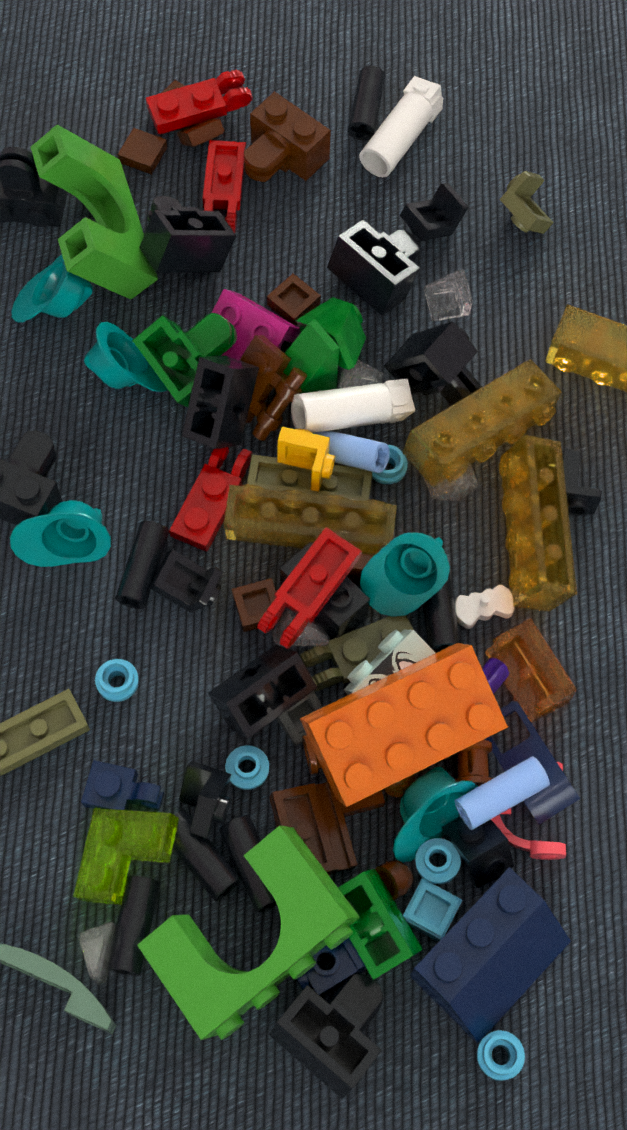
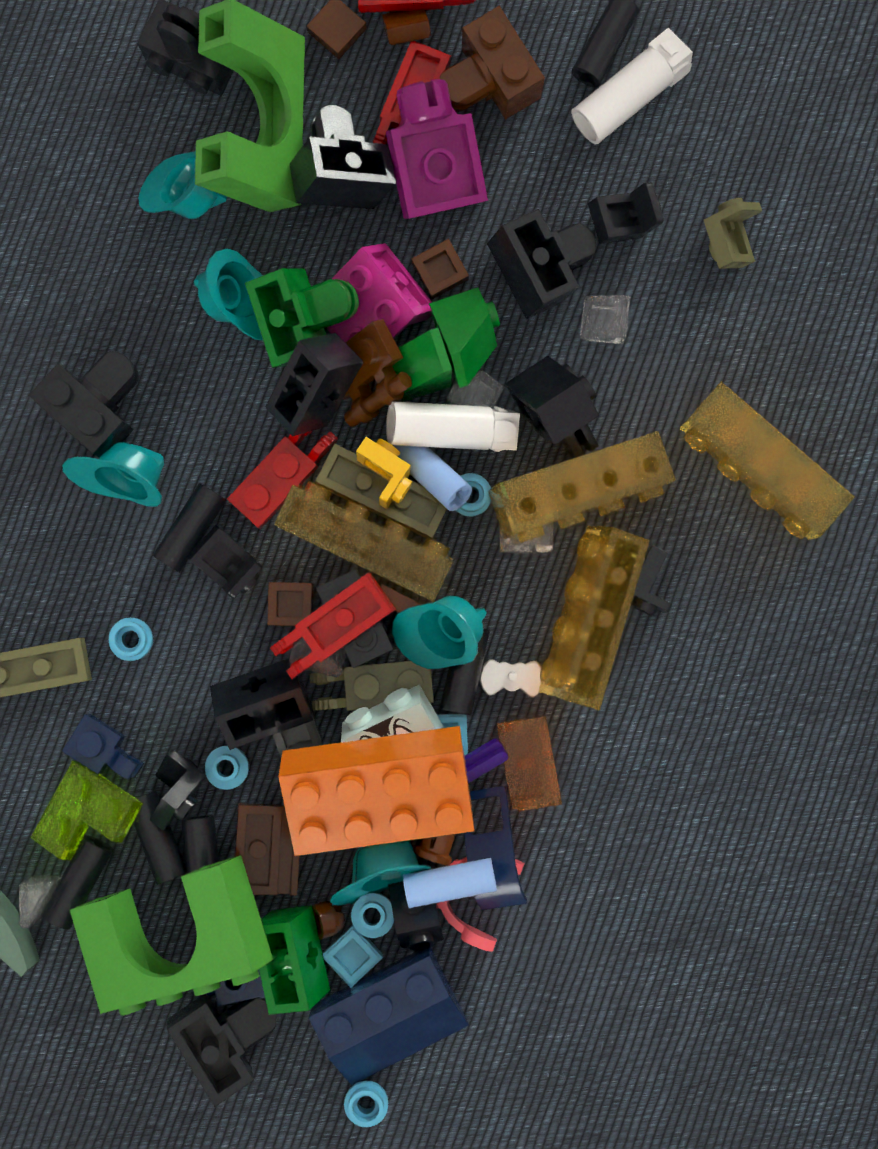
camera: 20 degrees right, 20 degrees up
(259, 208) = (434, 152): none -> magenta plate

